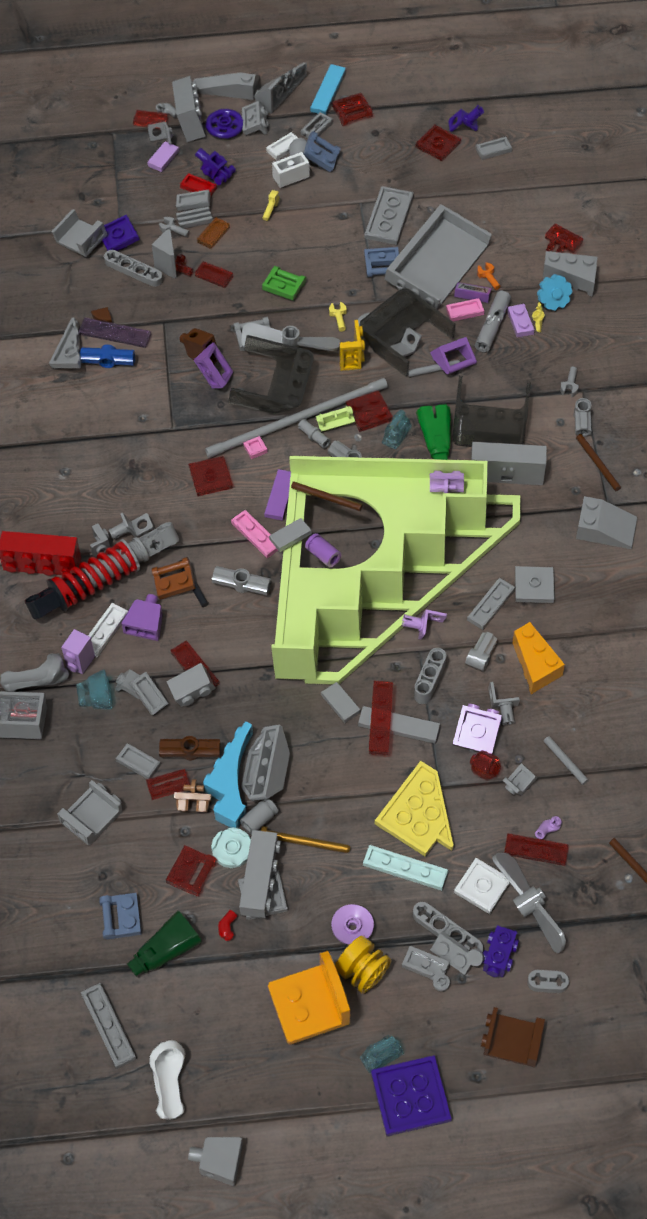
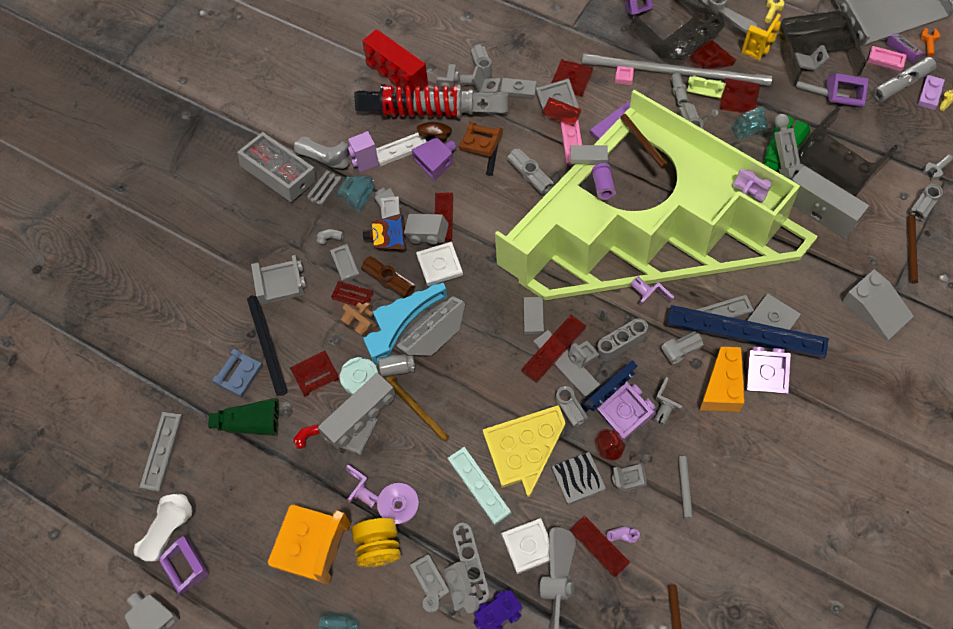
camera: 40 degrees right, 5 degrees up
(62, 694) = (322, 186): none -> light grey tile
(102, 744) = (329, 233): none -> light grey arm
(116, 506) = (482, 60): none -> light grey piece
(124, 593) = (434, 128): none -> reddish brown dish
(127, 875) = (267, 346): none -> black axle
(160, 710) = (387, 233): none -> torso
(169, 512) = (519, 88): none -> light grey plate
(214, 502) = (560, 91): none -> light grey tile
(215, 1087) = (196, 564): none -> medium lavender tile
(225, 709) = (439, 263): none -> white plate
(228, 511) = (561, 111): none -> clear red tile
(313, 936) = (360, 491): none -> lavender bracket
(321, 388) = (712, 56): none -> clear red wing
(408, 707) = (582, 354): none -> light grey bracket
(431, 757) = (571, 408): none -> light grey piece
(446, 435) = (787, 148): none -> light grey plate
(451, 718) = (610, 387): none -> dark blue plate
(479, 808) = (578, 478): none -> light grey tile
(523, 607) = (748, 331): none -> dark blue plate
(561, 627) = (768, 370): none -> plate

